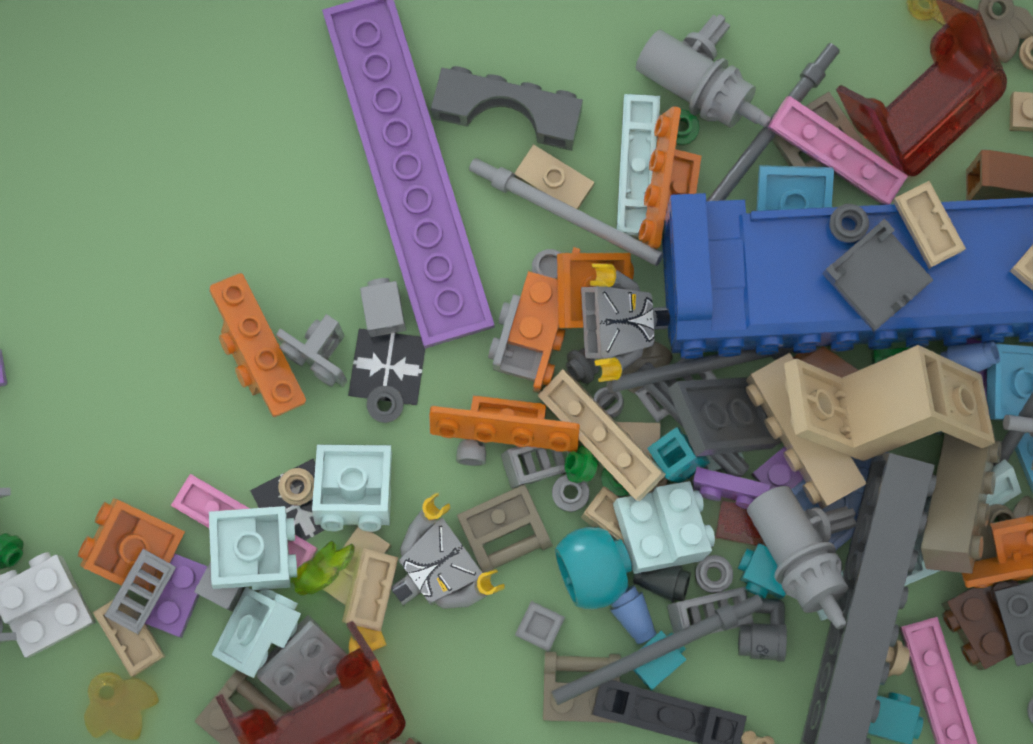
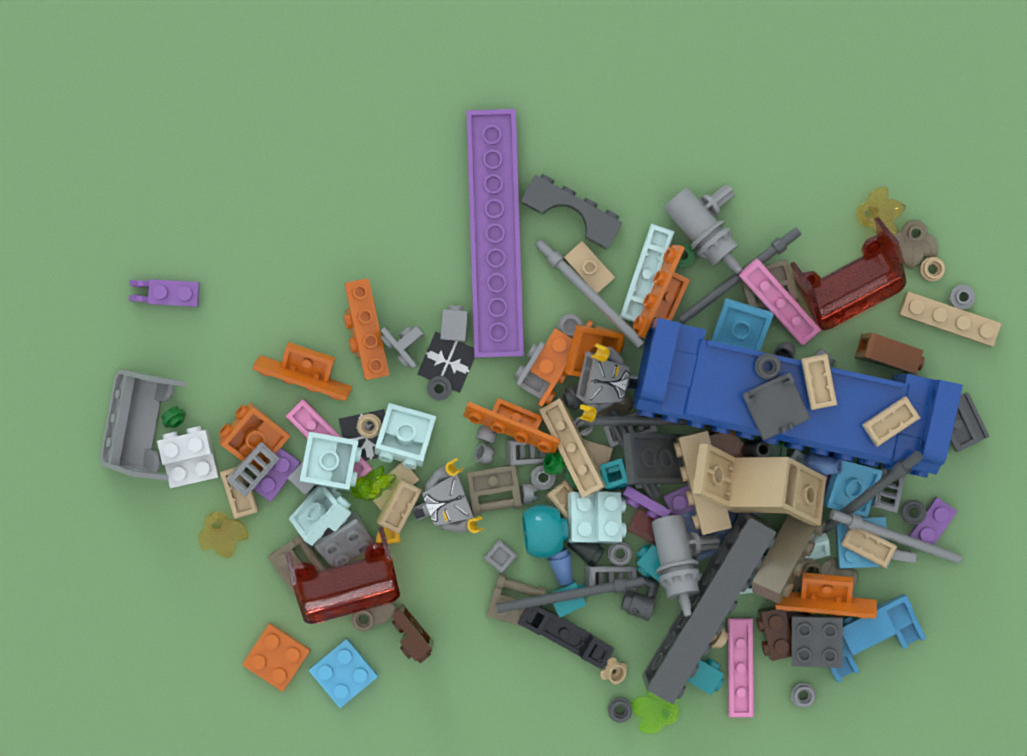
camera: 10 degrees right, 10 degrees up
(183, 427) = (305, 369): none -> orange bracket
(476, 481) = (484, 454): none -> light grey hinge
(554, 521) = (527, 493): none -> light grey hinge
(868, 356) = (751, 449): none -> pearl dark grey cone

